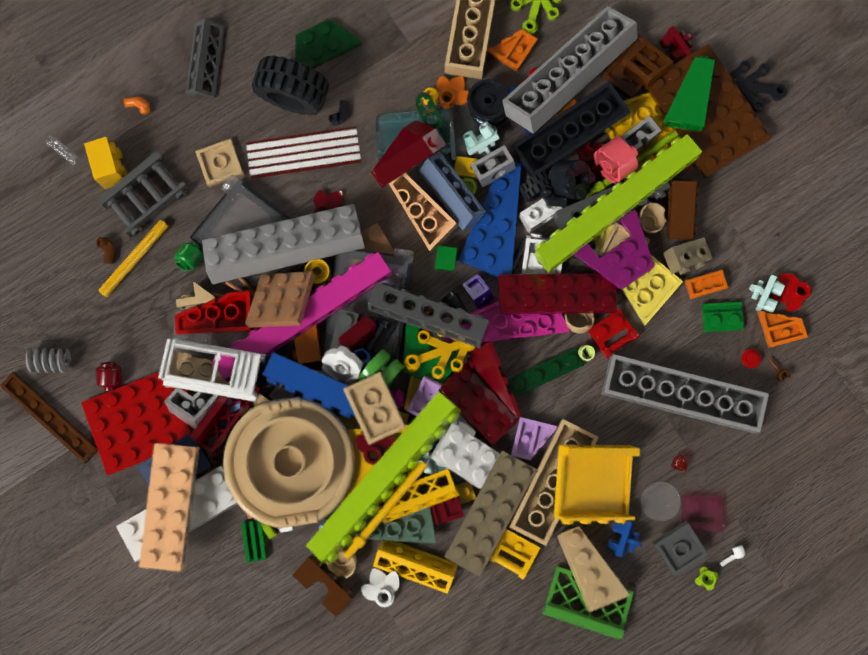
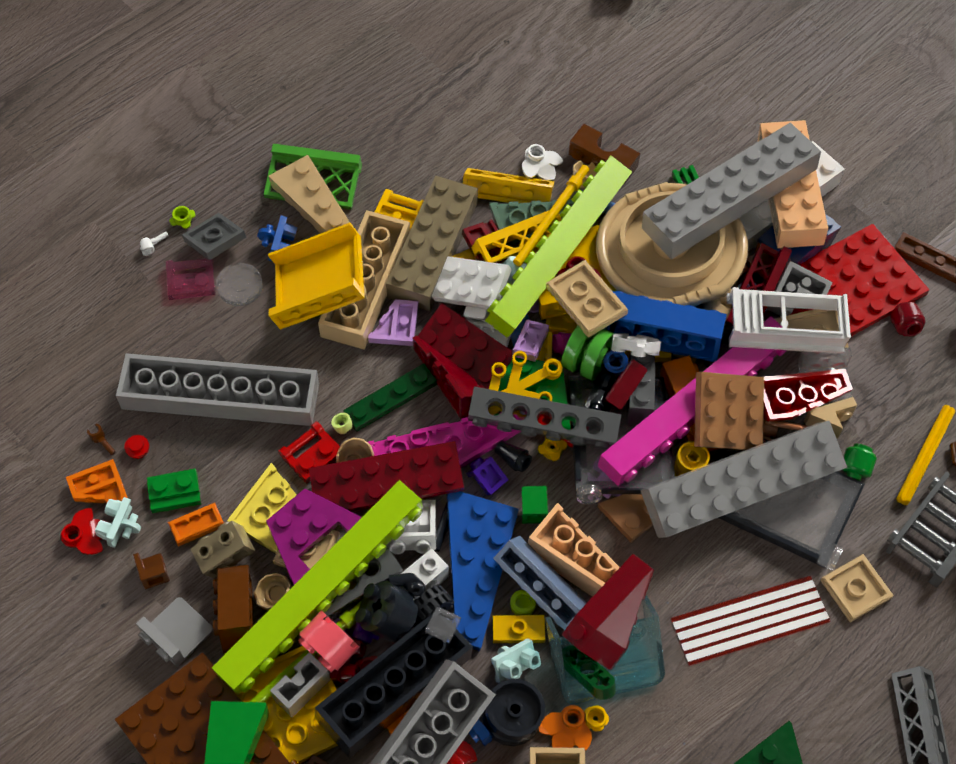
camera: 165 degrees right, 20 degrees down
(226, 489) = (730, 190): none -> light grey brick
(290, 85) = (791, 677): black tyre -> none
(326, 202) = (695, 554): dark red plate -> none
(341, 115) = (713, 673): black arm -> none
(493, 166) = (493, 618): light grey brick -> none
(531, 162) = (443, 624): none -> clear tile
(680, 463) = (219, 322): clear red hinge -> none
(726, 200) = (175, 631): none -> light grey bracket
(742, 253) = (151, 570): none -> reddish brown panel

